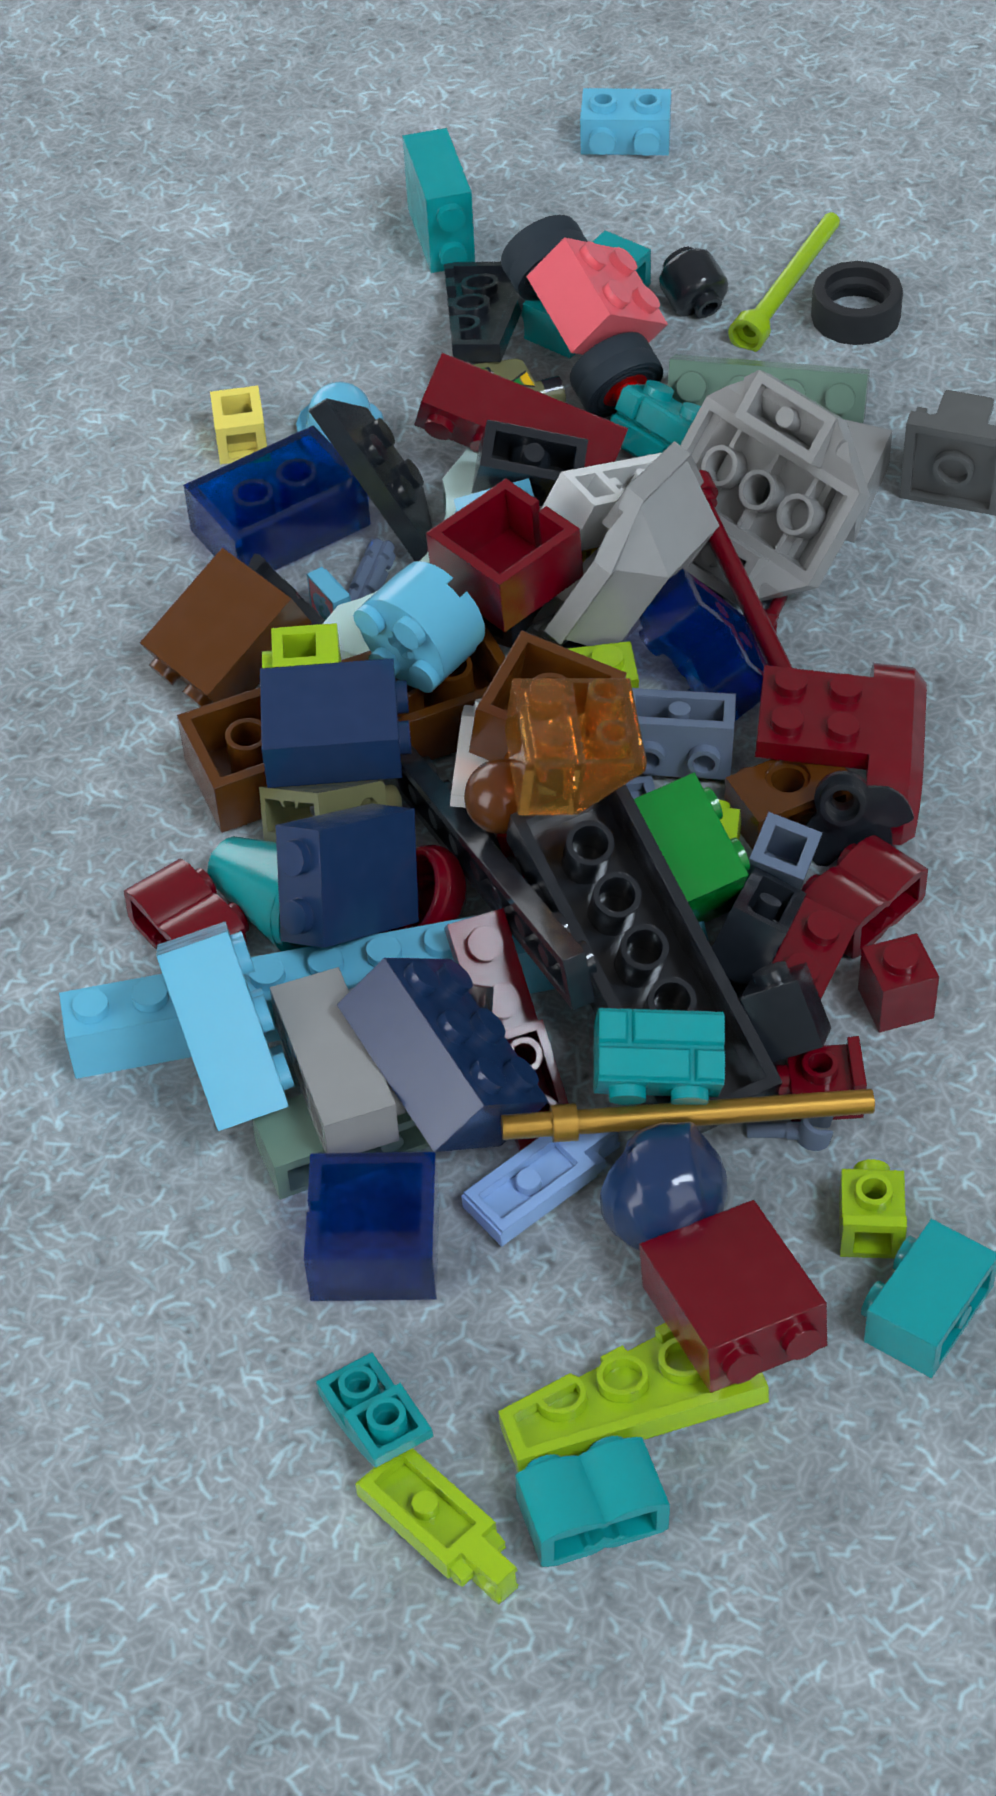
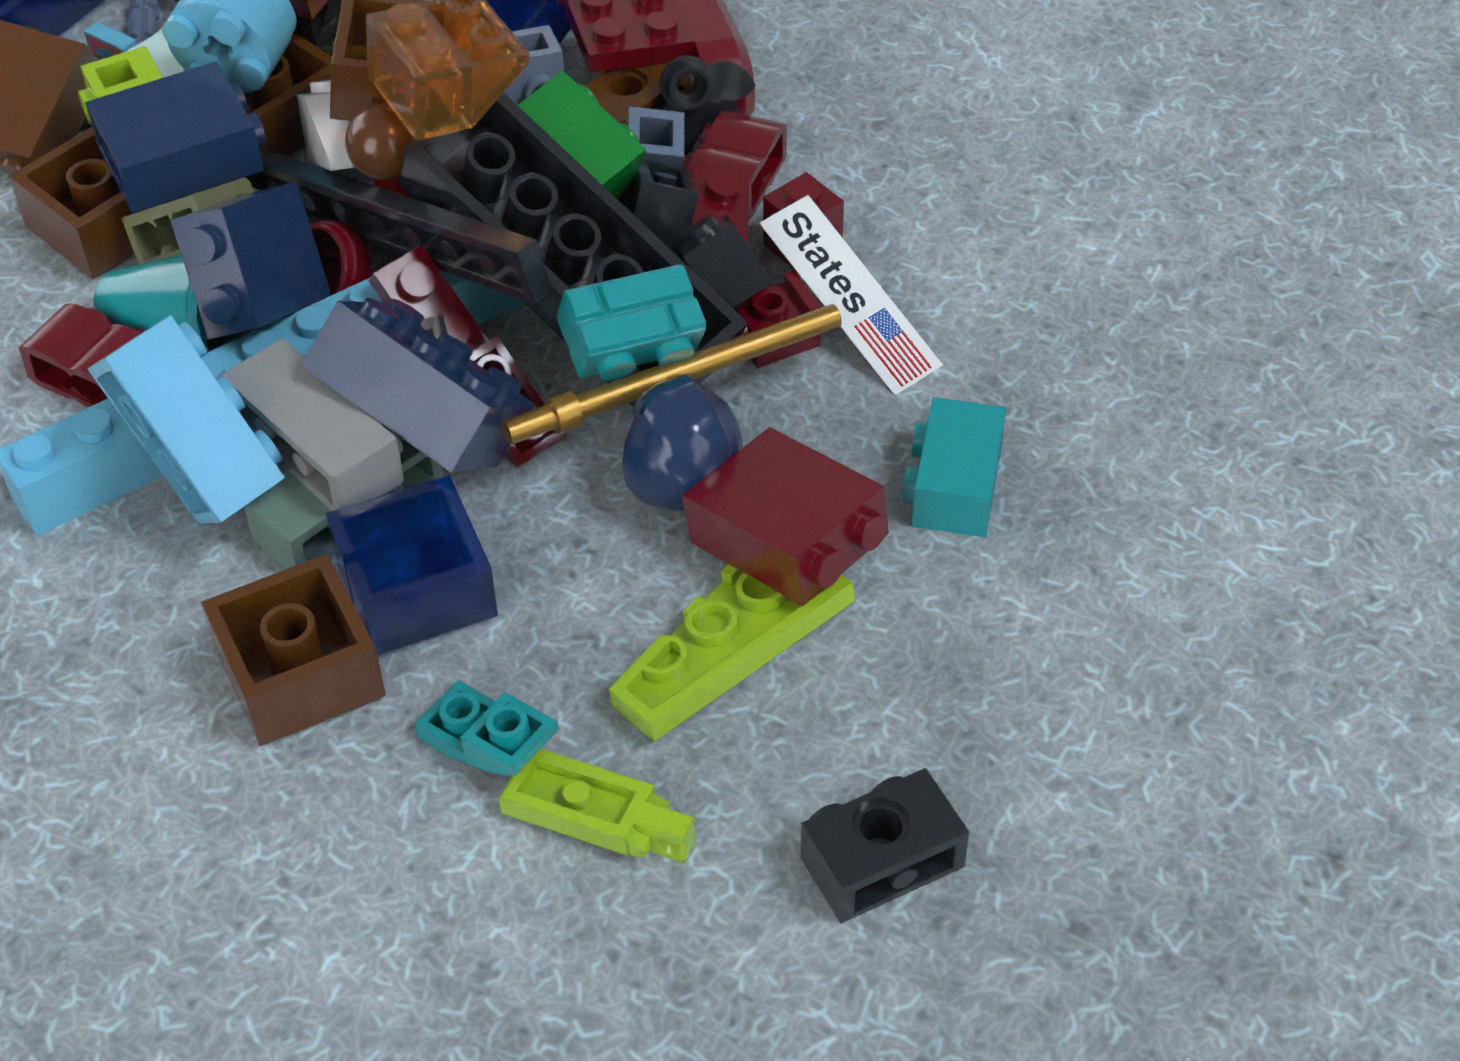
camera: 25 degrees left, 0 degrees up
(236, 1274) = (294, 649): none -> reddish brown brick
(536, 1182) = (548, 483): light blue hinge -> none
(591, 1500) = (734, 737): teal brick -> none
(649, 1684) = (862, 875): none -> black brick
(802, 1131) = (780, 370): sand blue hand -> none
(872, 1210) = (868, 402): lime brick -> none
(907, 1079) = (842, 280): none -> white sticker

